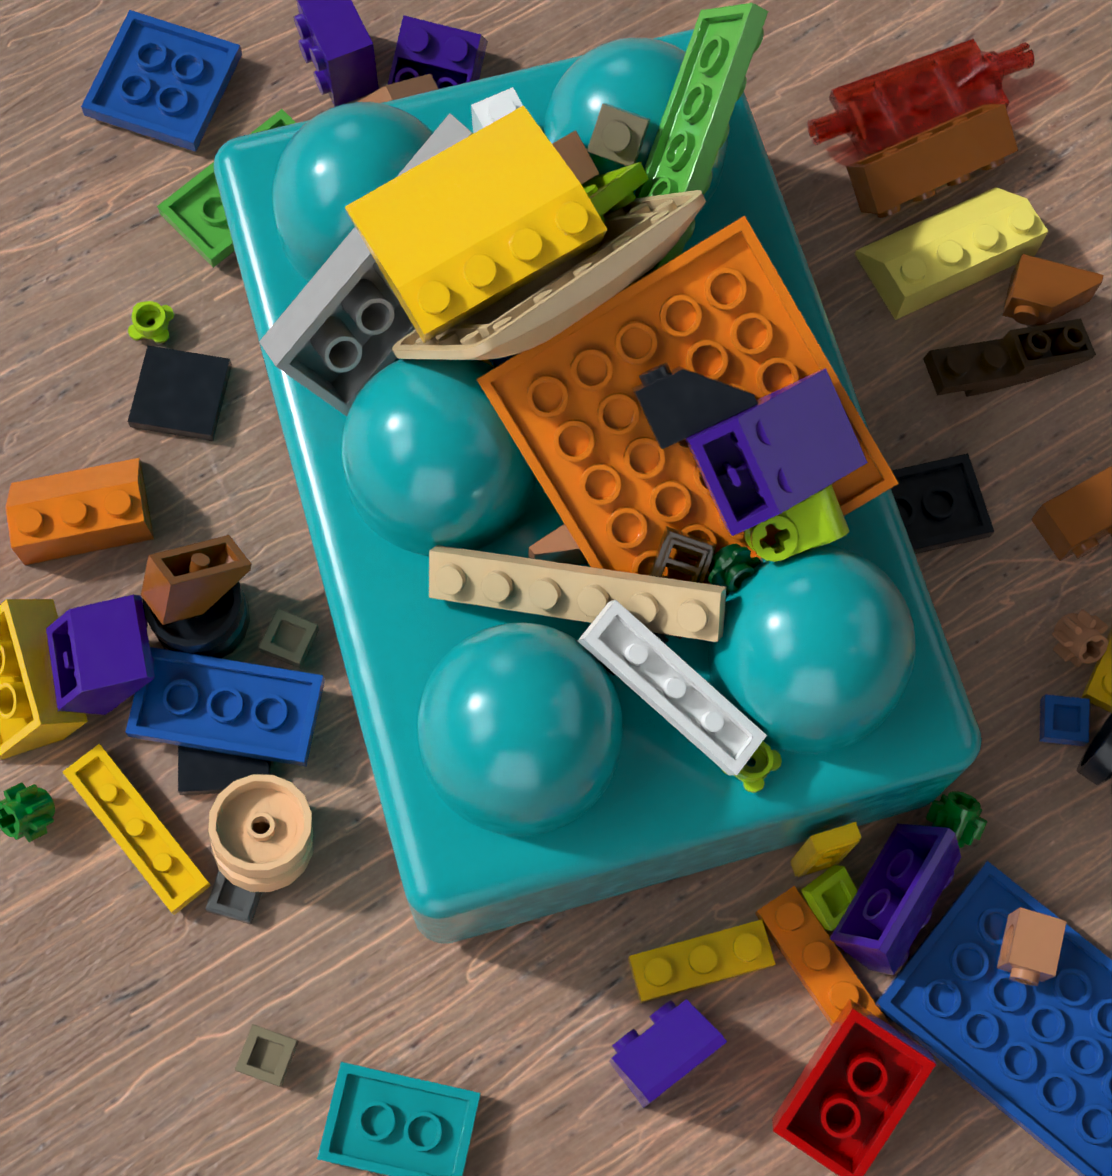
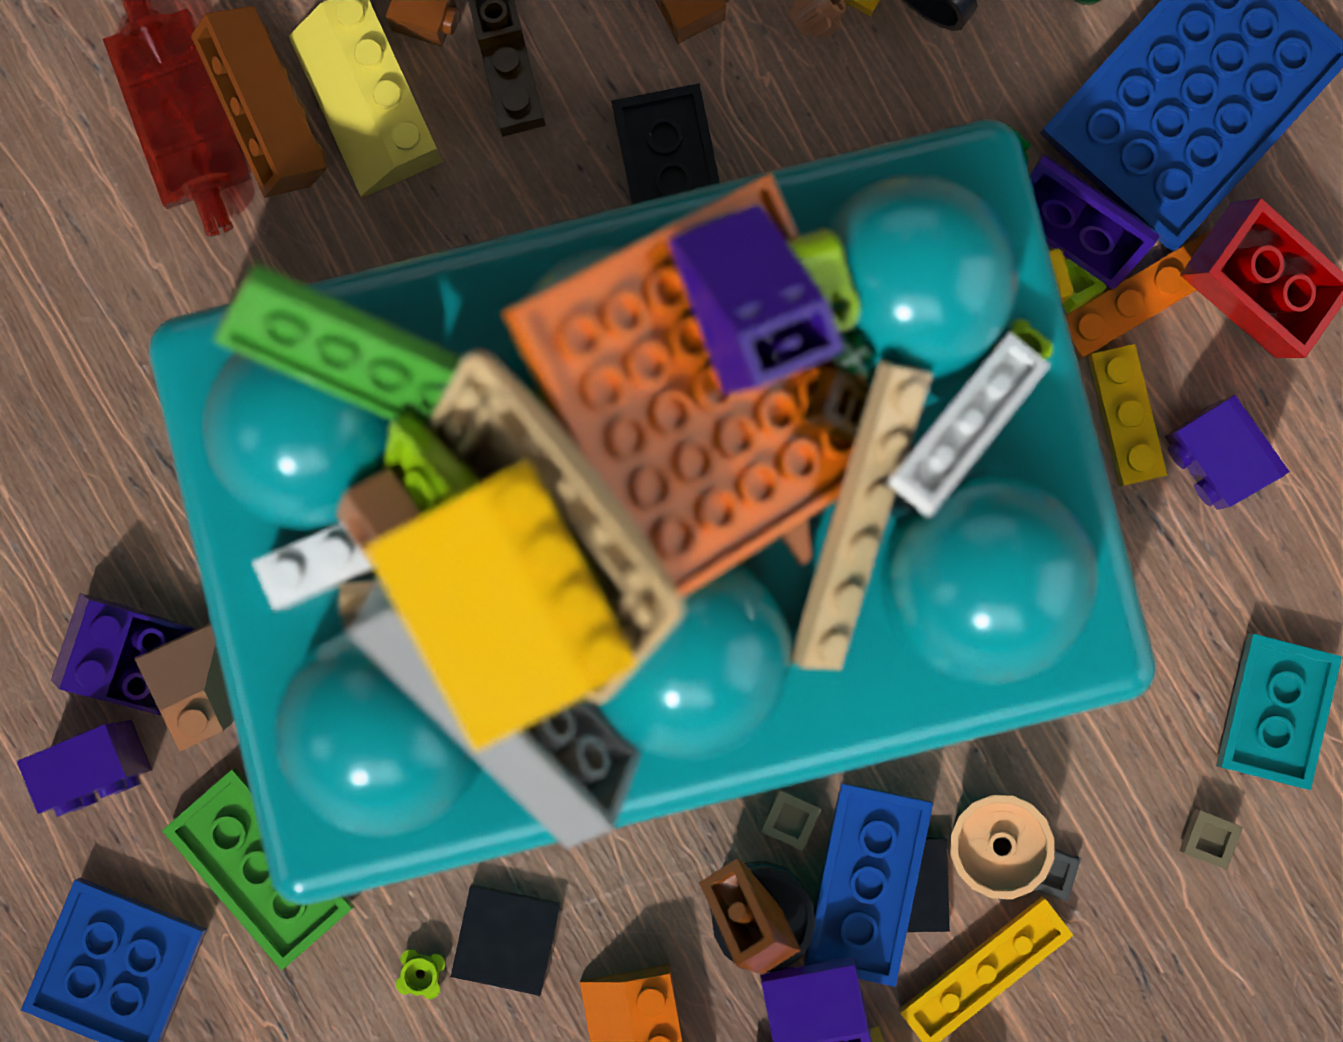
camera: 85 degrees left, 15 degrees up
(618, 135) = (352, 444): dark tan plate -> none
(686, 402) = (701, 384): black slope -> none
(1031, 946) = (1136, 95): nougat brick -> none
(1064, 720) = (900, 36): blue plate -> none

